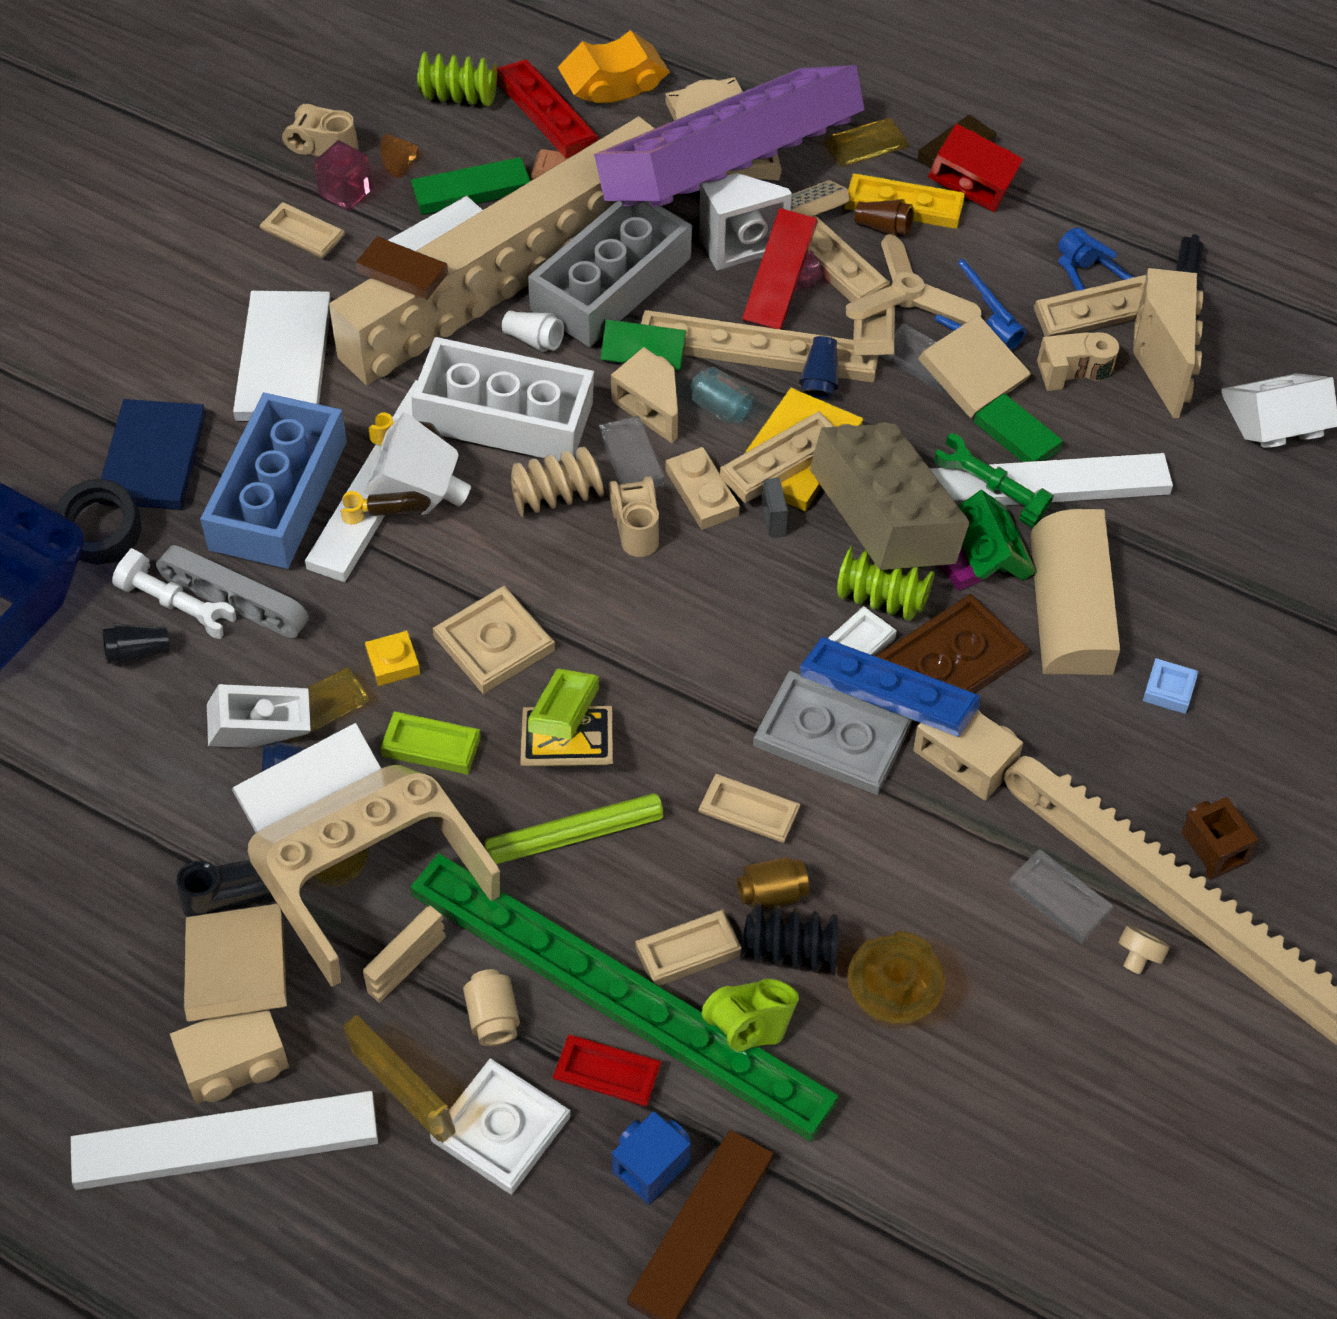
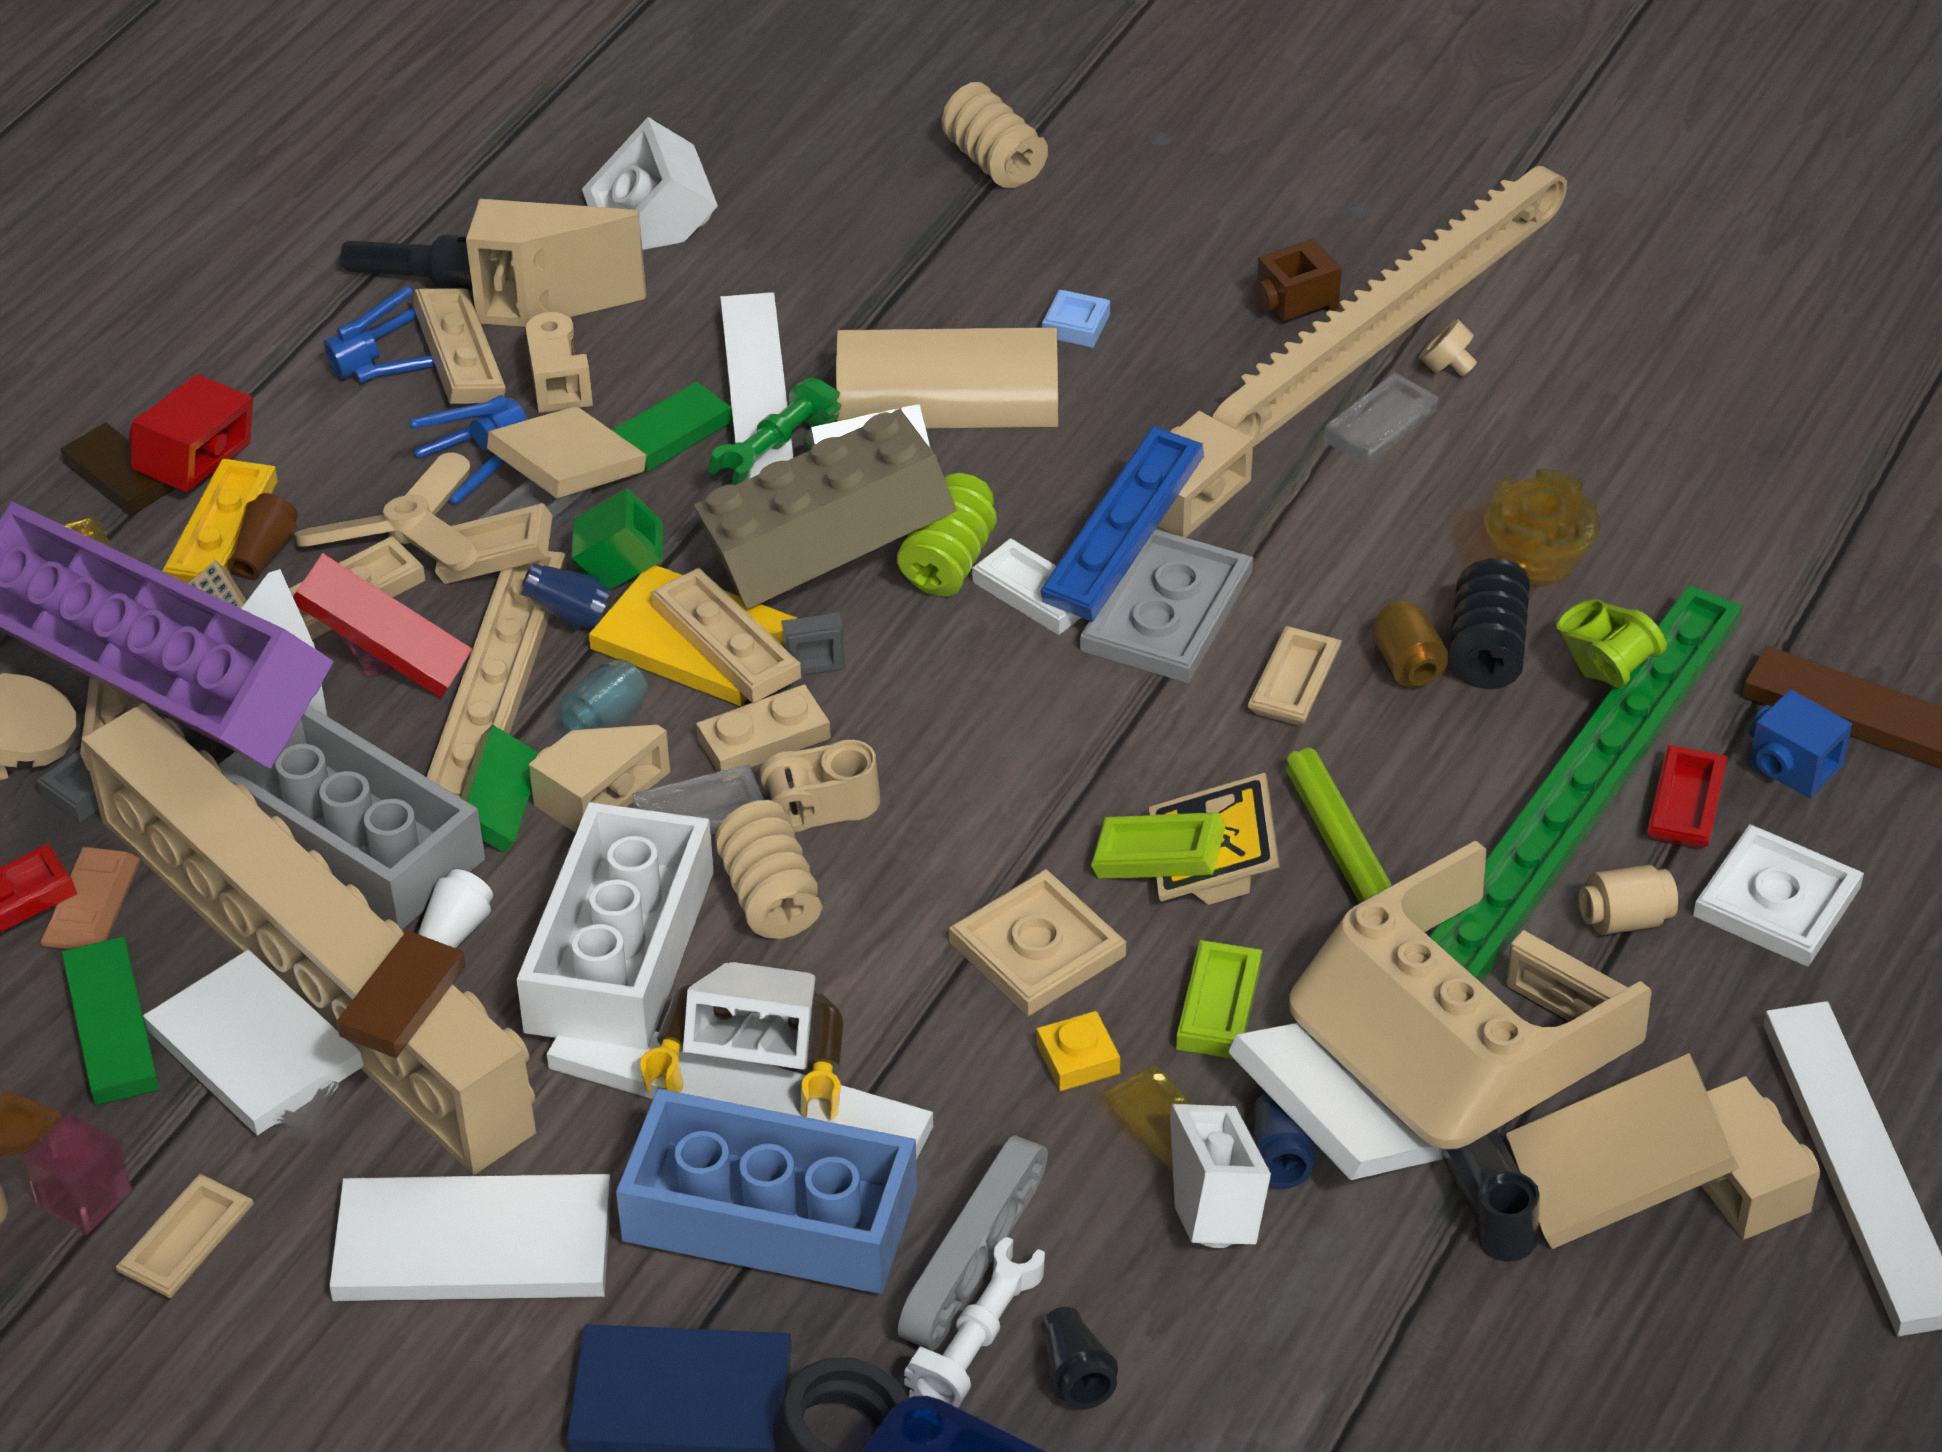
camera: 90 degrees left, 10 degrees down
(399, 1079) = (1755, 970): clear yellow tile -> none
(688, 948) = (1502, 731): tan tile -> none
(873, 391) = (617, 539): none -> green brick
(960, 647) = (1038, 491): reddish brown tile -> none

